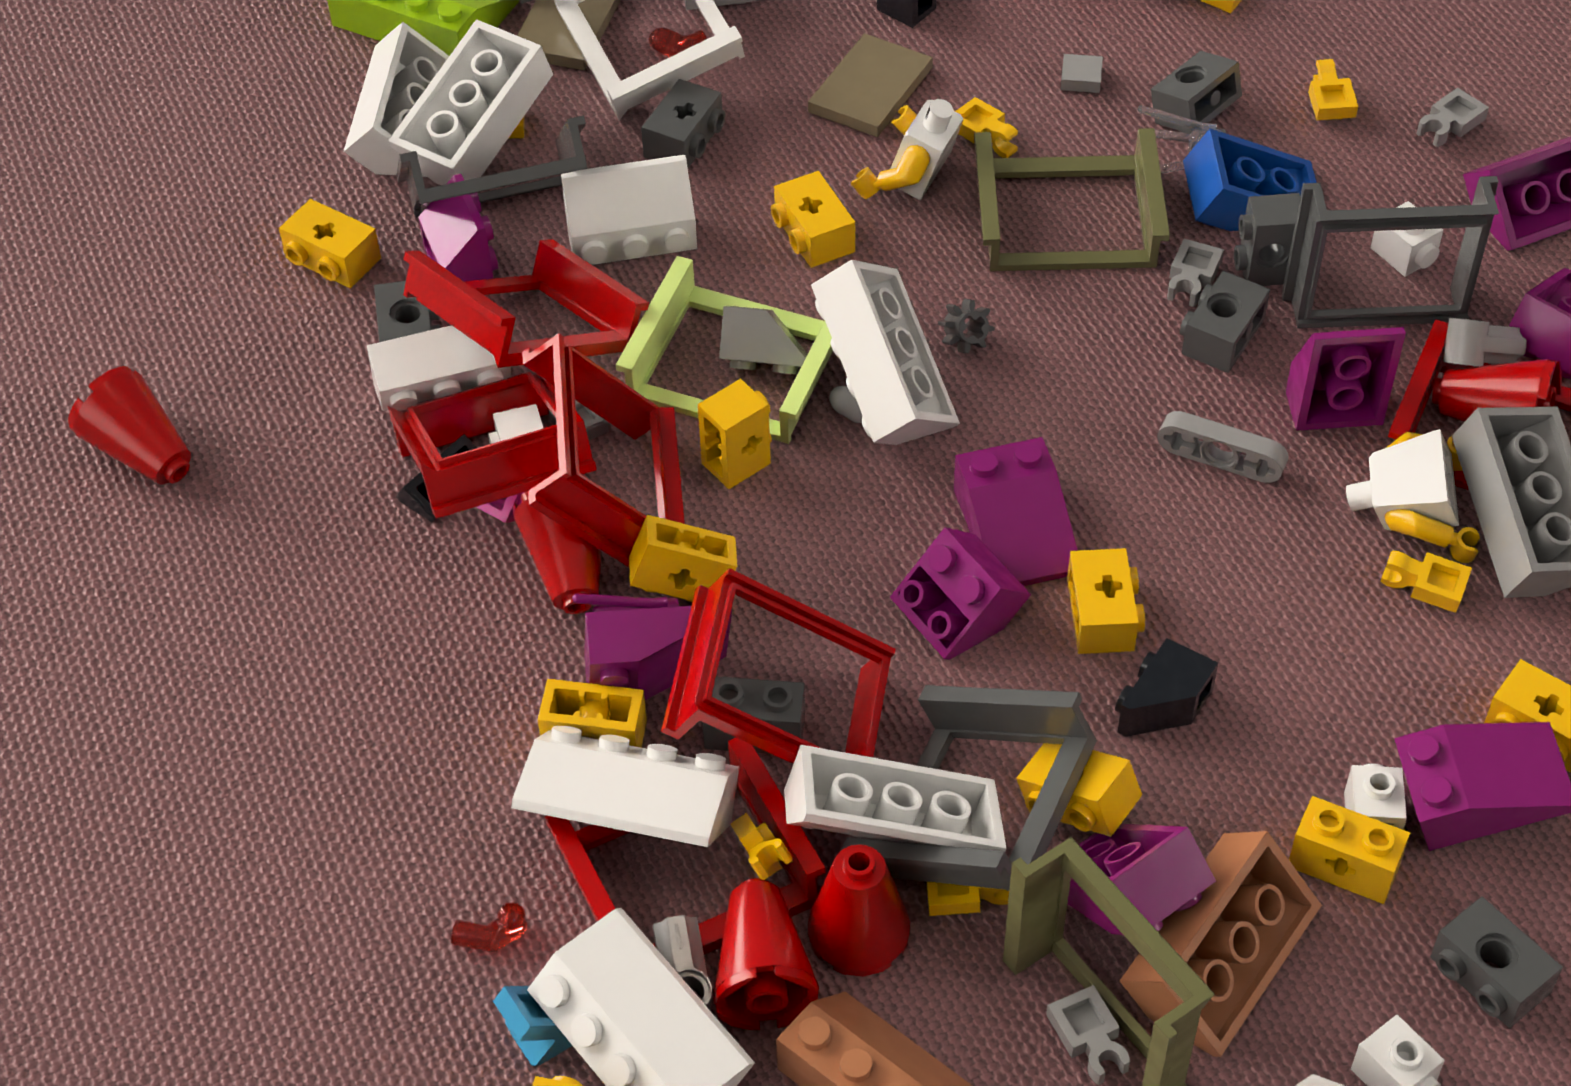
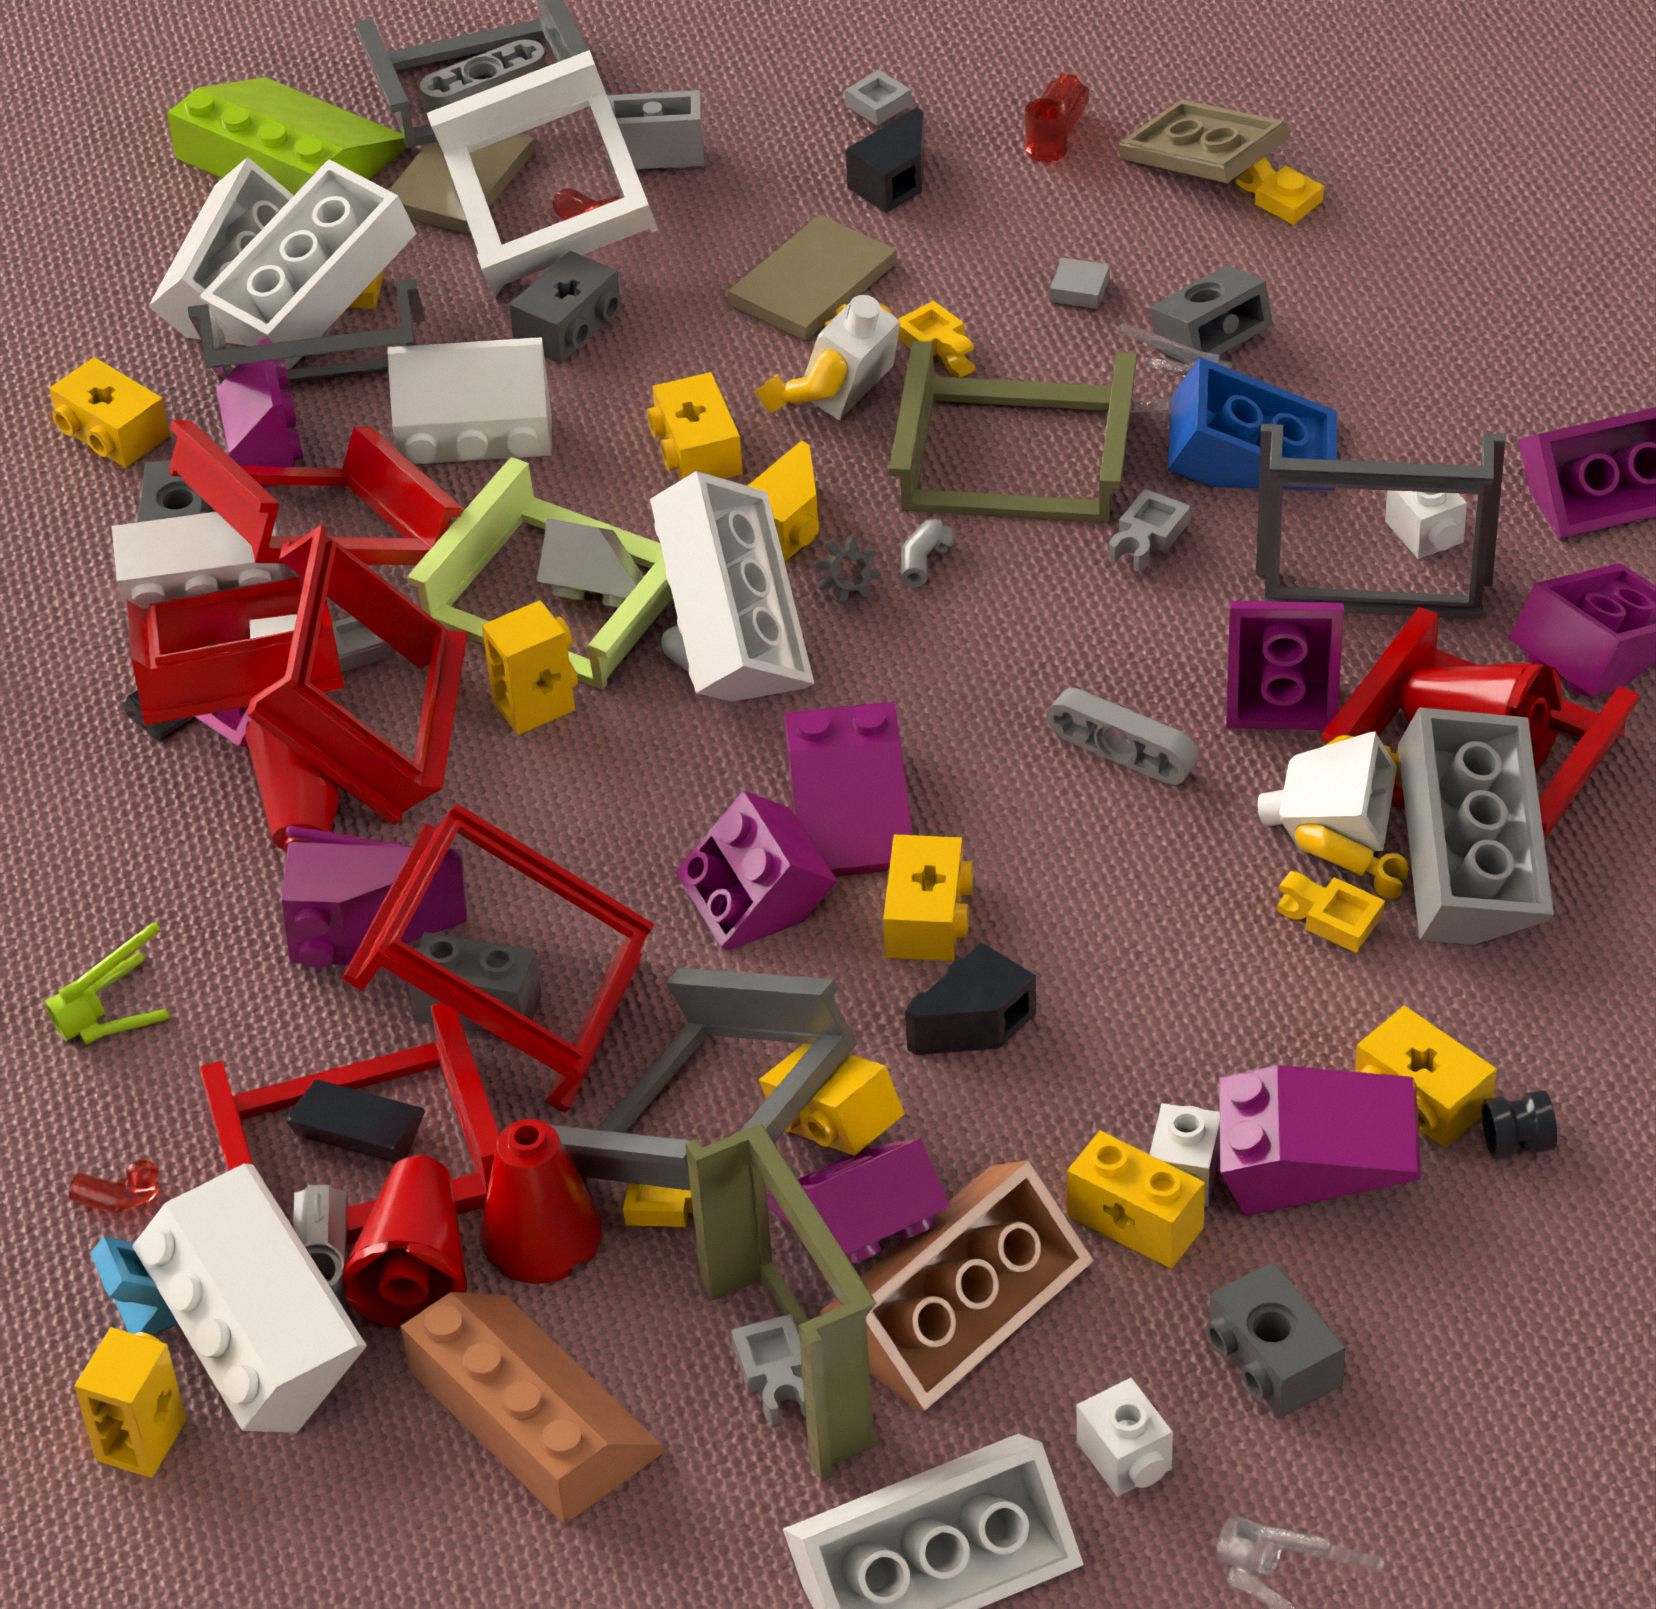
camera: 10 degrees right, 5 degrees down
(421, 769) = (78, 1006): none -> lime plant
(594, 710) = (282, 970): yellow brick -> none
(628, 786) = (302, 1041): white slope -> none
(679, 557) = (424, 790): yellow brick -> none
(684, 857) = (356, 1121): none -> black slope
(762, 846) = (440, 1124): yellow plate -> none
(892, 801) = (594, 1082): white slope -> none
(908, 256) = (792, 498): none -> yellow slope
(1013, 304) = (916, 548): none -> light grey arm
(1224, 321) = (1168, 590): dark grey brick -> none
(1266, 238) = (1236, 488): dark grey brick -> none
(1331, 96) = (1384, 333): yellow plate -> none
(1453, 113) = (1534, 367): light grey plate -> none
(1480, 343) = (1463, 638): light grey piece -> none

